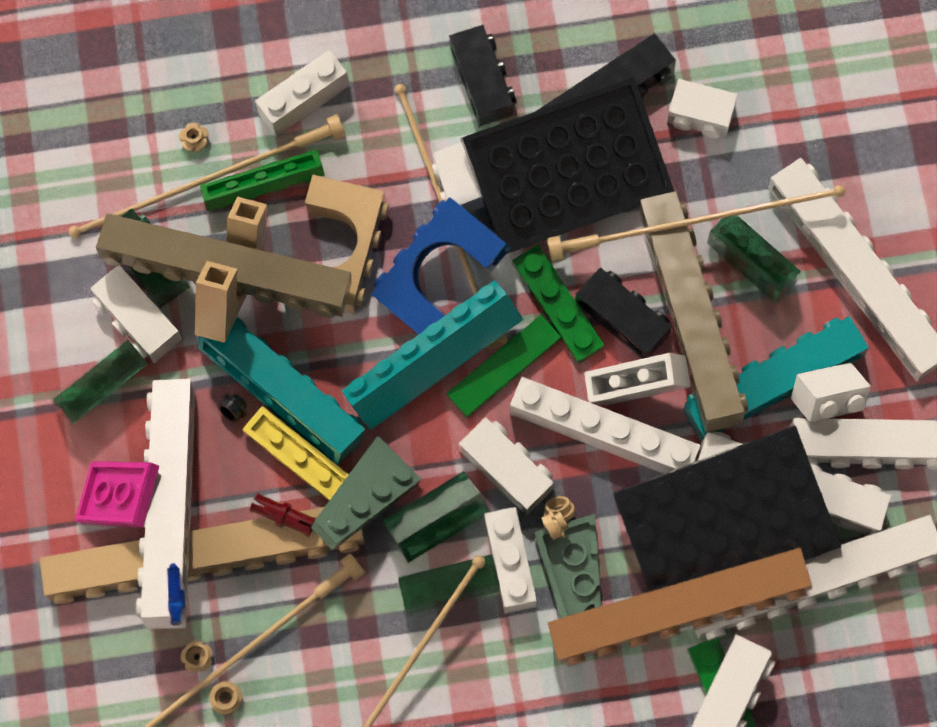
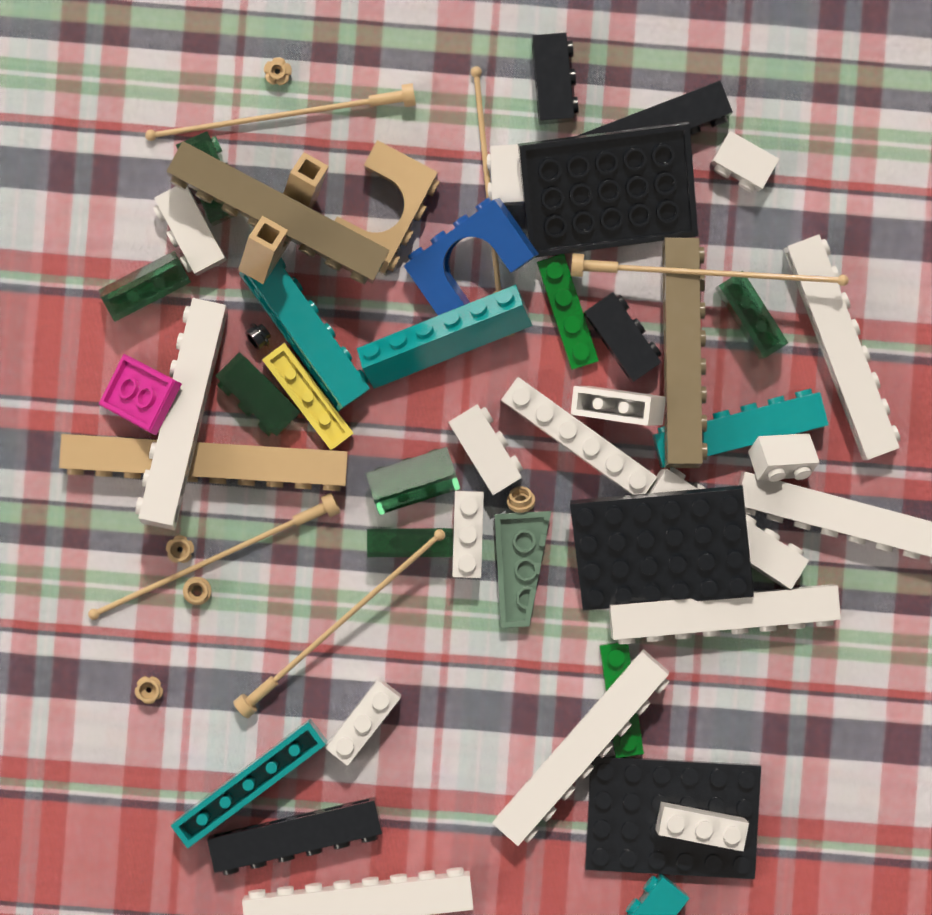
camera: 10 degrees right, 15 degrees up
(176, 596) = (172, 506): clear blue piece -> none
(245, 466) = (257, 395): none -> clear green brick
(262, 180) = (330, 130): green plate -> none
(282, 514) = (280, 449): dark red pin -> none
(302, 93) = (386, 55): white brick -> none
(367, 492) = (362, 442): sand green wing -> none
(503, 366) = (505, 357): green tile -> none
(555, 524) = (514, 515): tan plate -> none
(680, 606) = (601, 615): medium nougat brick -> none

